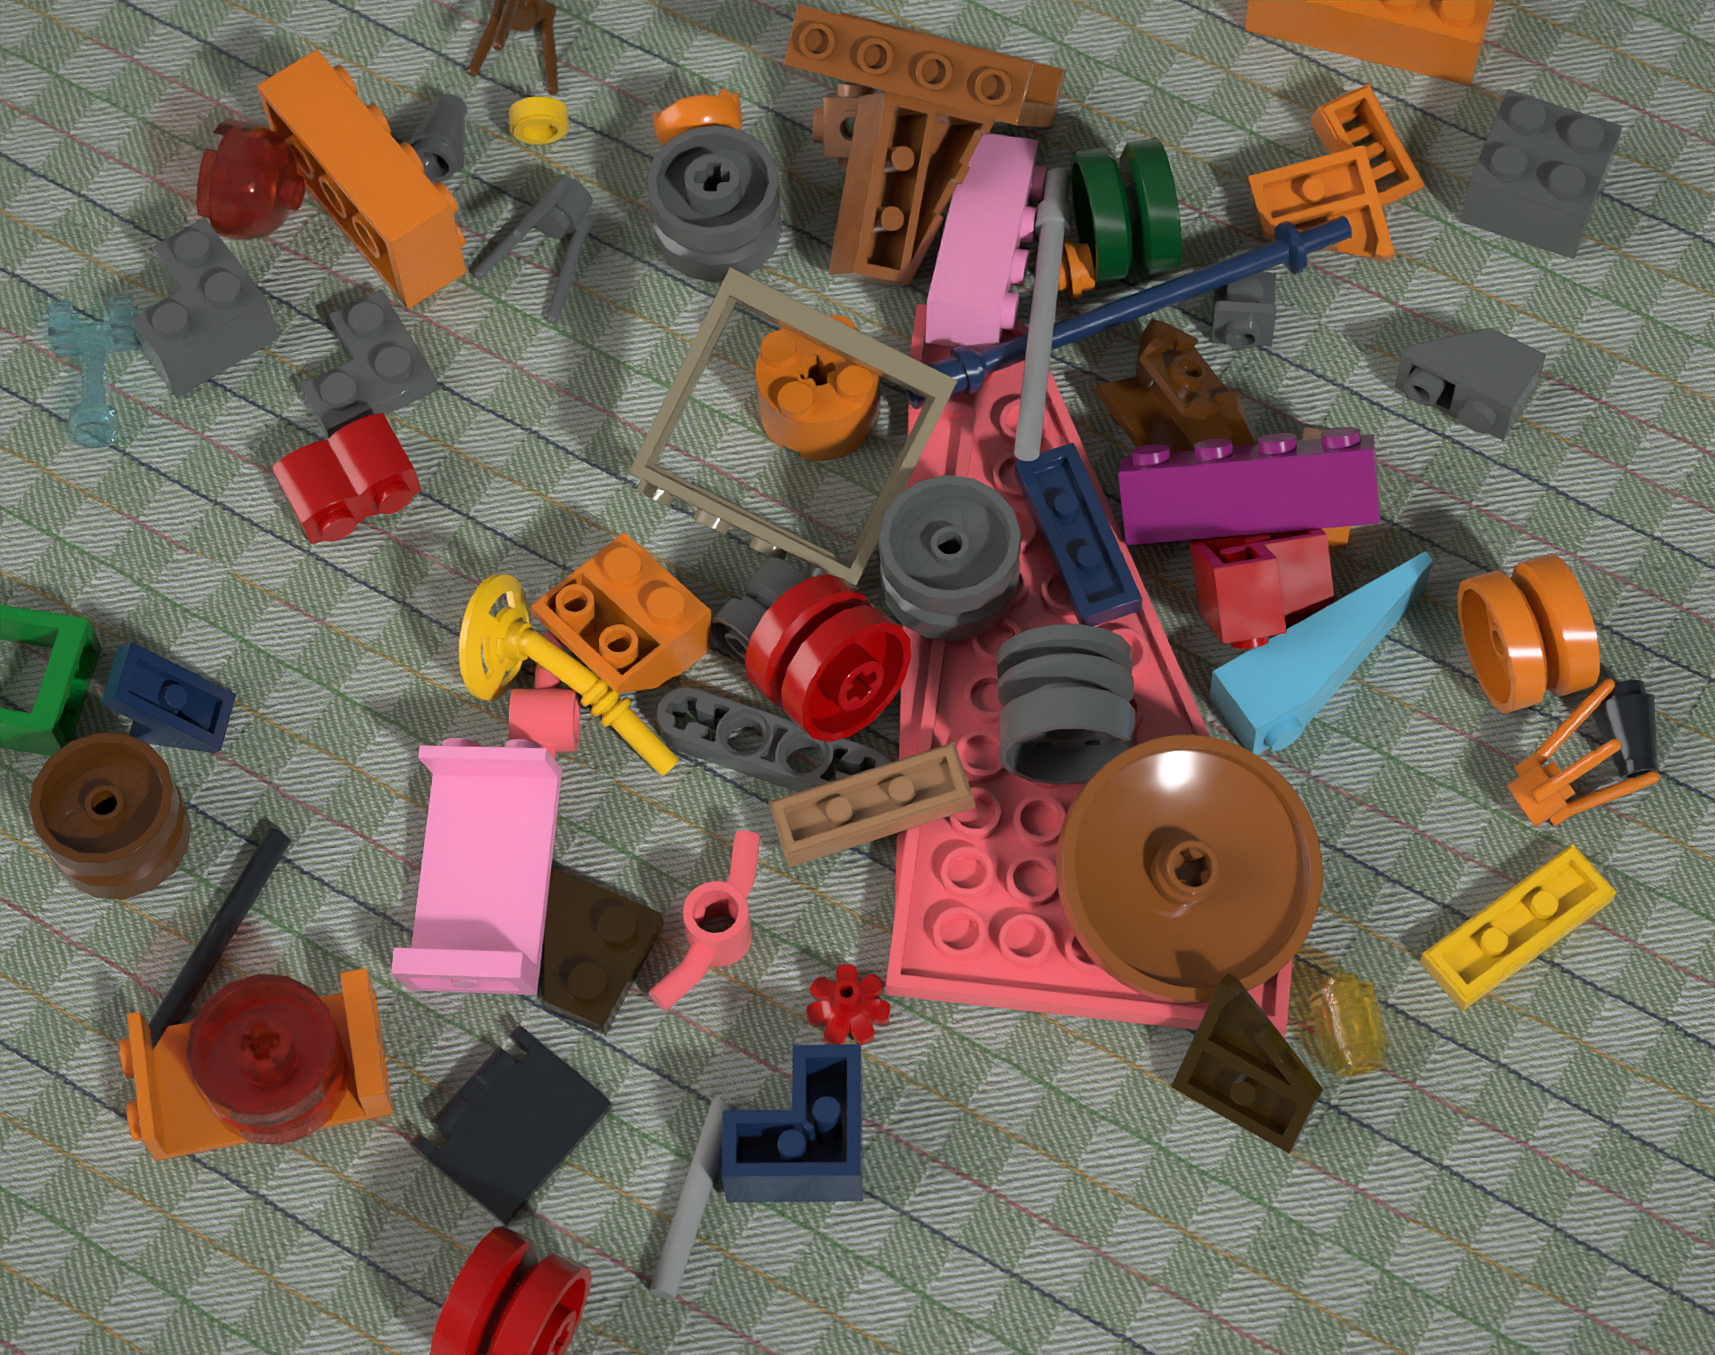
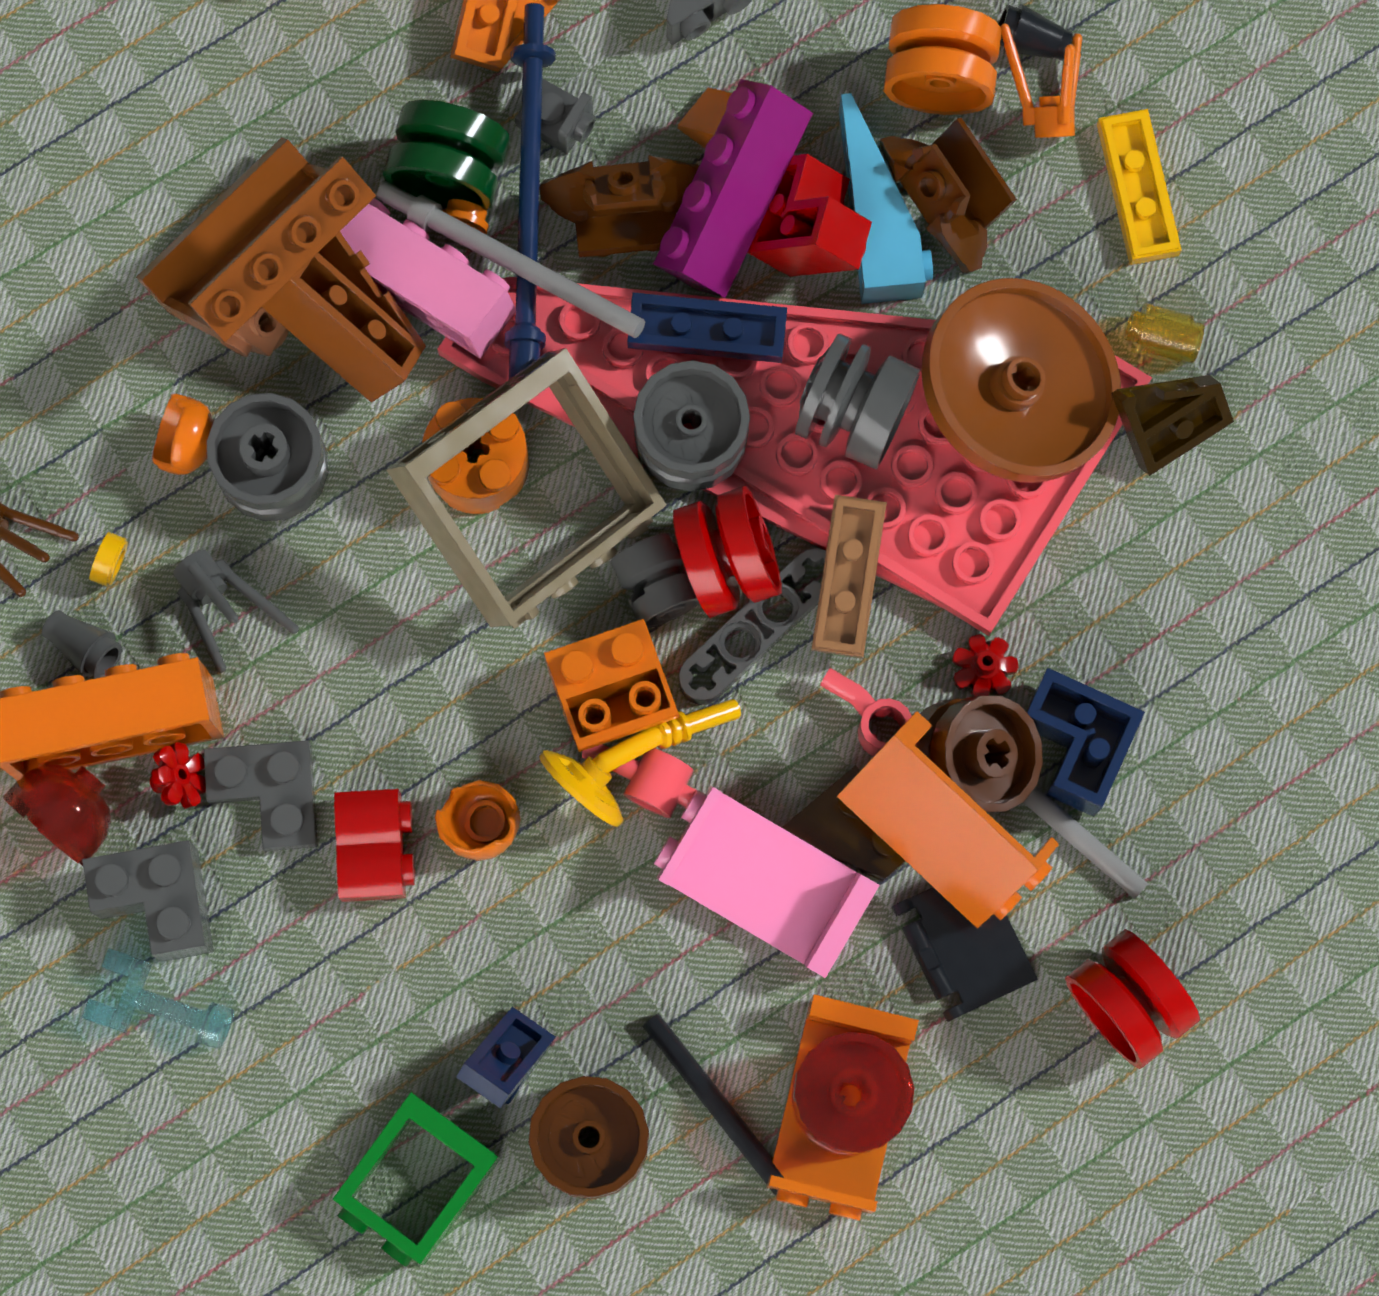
camera: 70 degrees left, 15 degrees up
(340, 274) = (178, 775): none -> red plant
(417, 563) = (478, 820): none -> orange hair
(606, 1010) = (943, 829): none -> orange panel
(730, 1054) = (985, 748): none -> reddish brown wheel
(1352, 756) = (952, 189): none -> reddish brown piece

